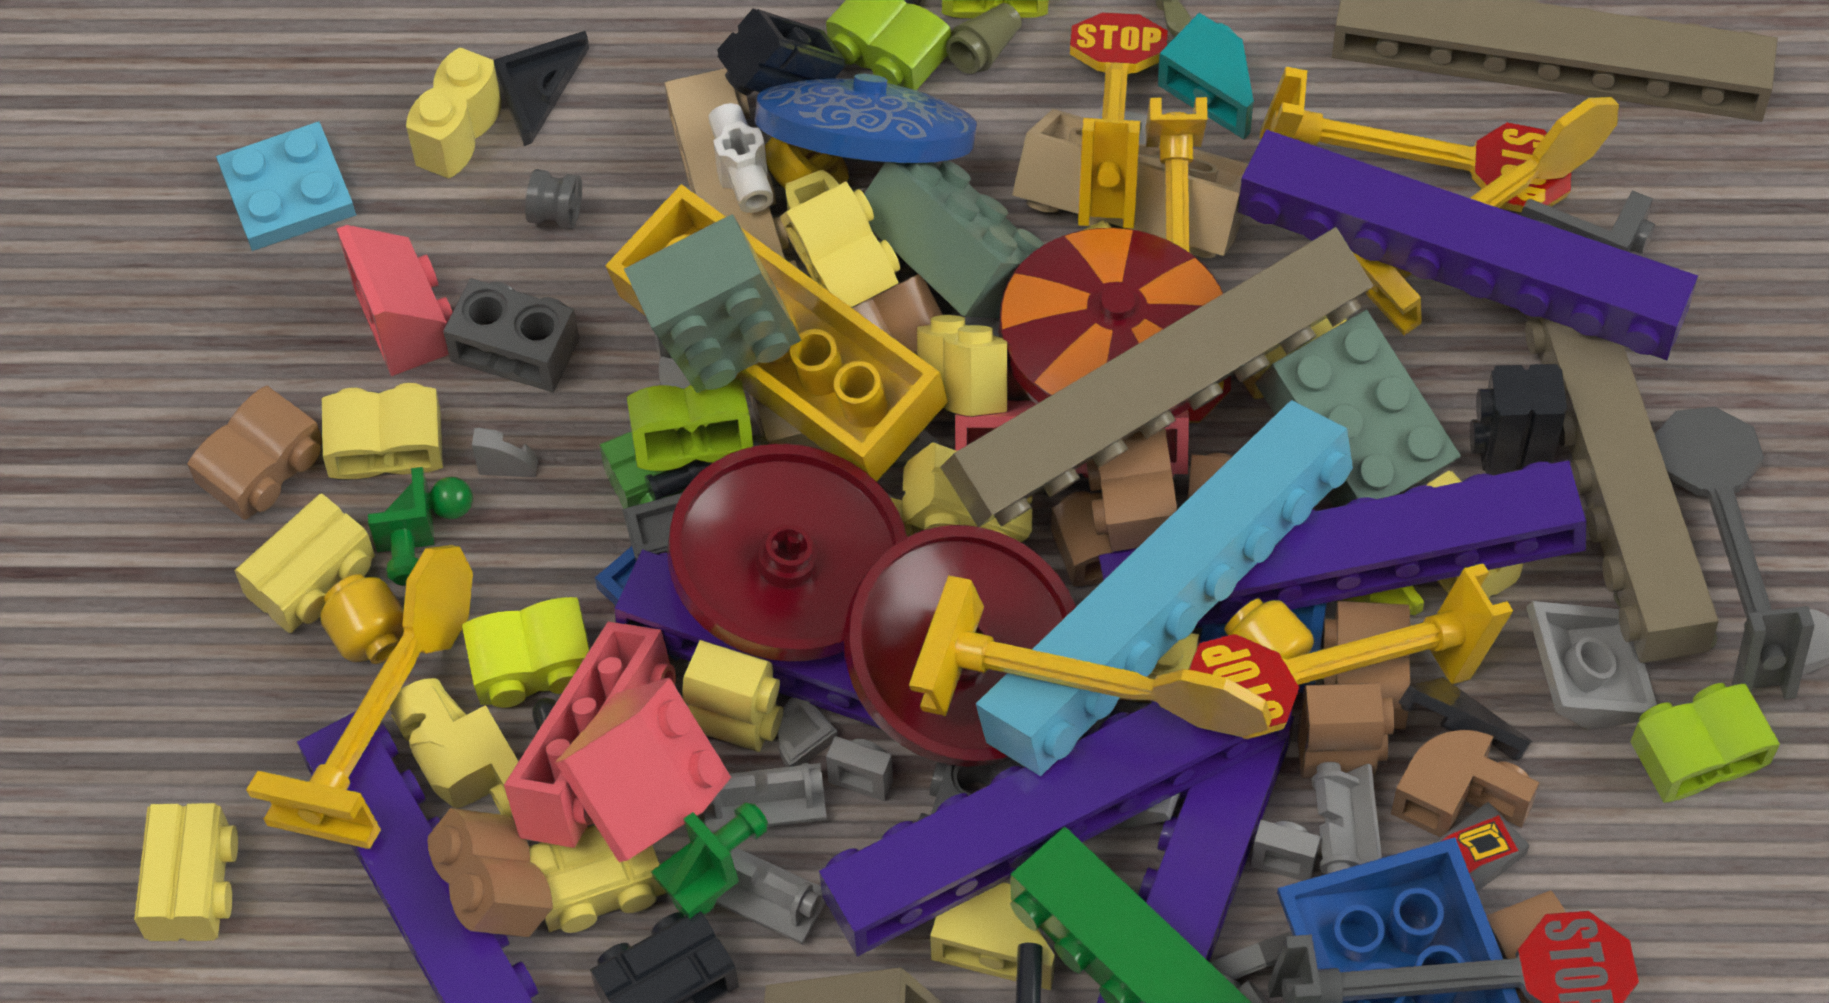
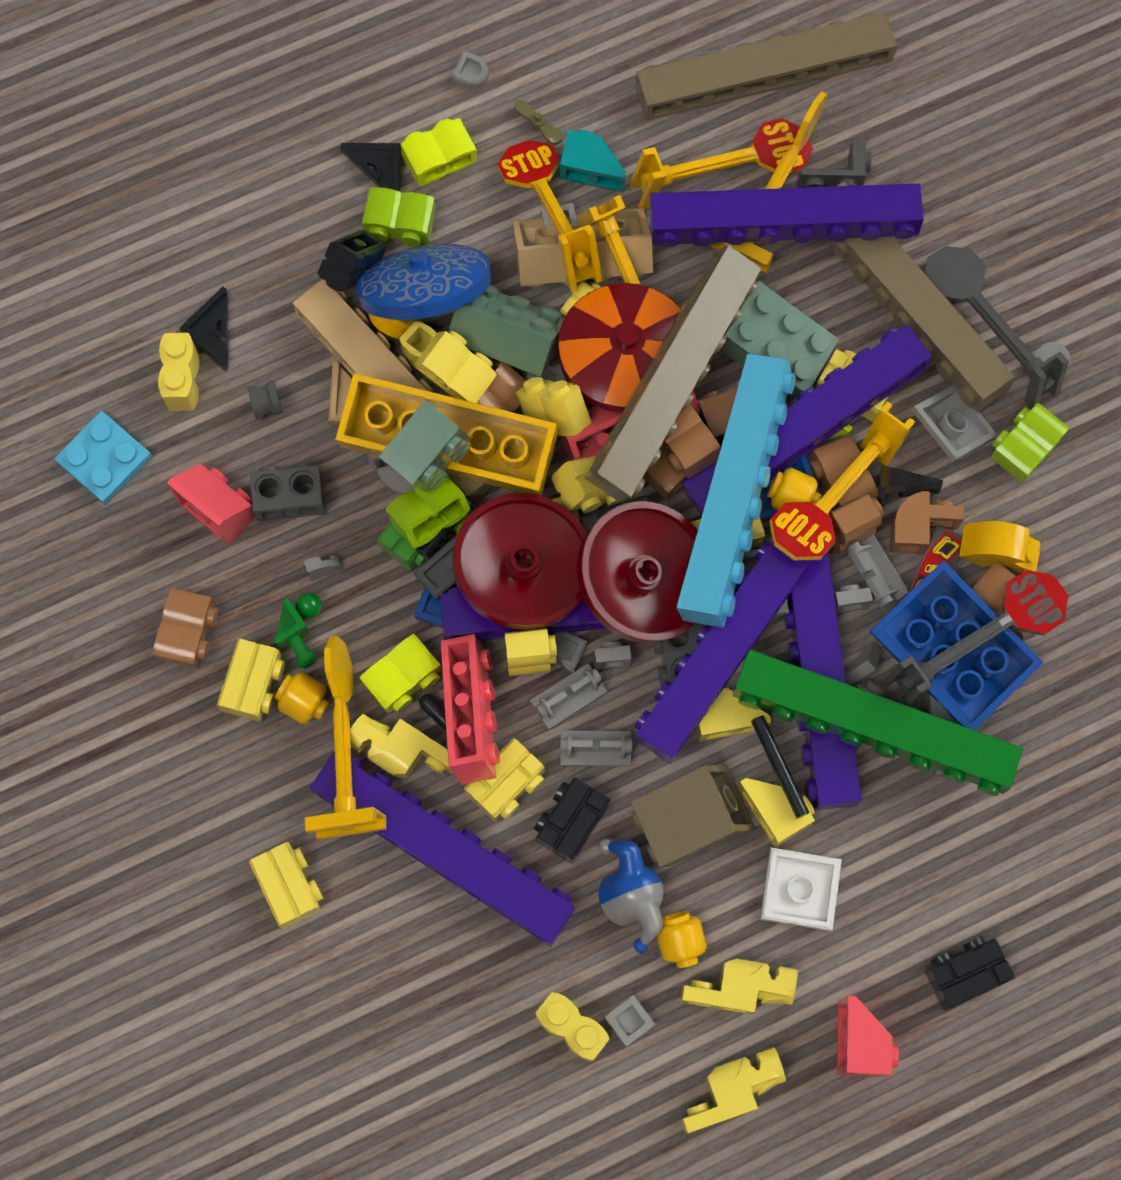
camera: 30 degrees left, 15 degrees up
(381, 431) = (247, 583): light yellow brick -> none
(489, 873) = (457, 812): medium nougat brick -> none
(642, 767) = (513, 719): coral slope -> none
(705, 866) = (566, 753): green piece -> none
(740, 158) = (357, 324): white axle -> none
(952, 645) = (652, 580): yellow piece -> none
(982, 39) = (451, 196): olive cone -> none
(1518, 417) = (858, 303): black brick -> none
(1576, 867) = (1000, 543): none -> yellow brick

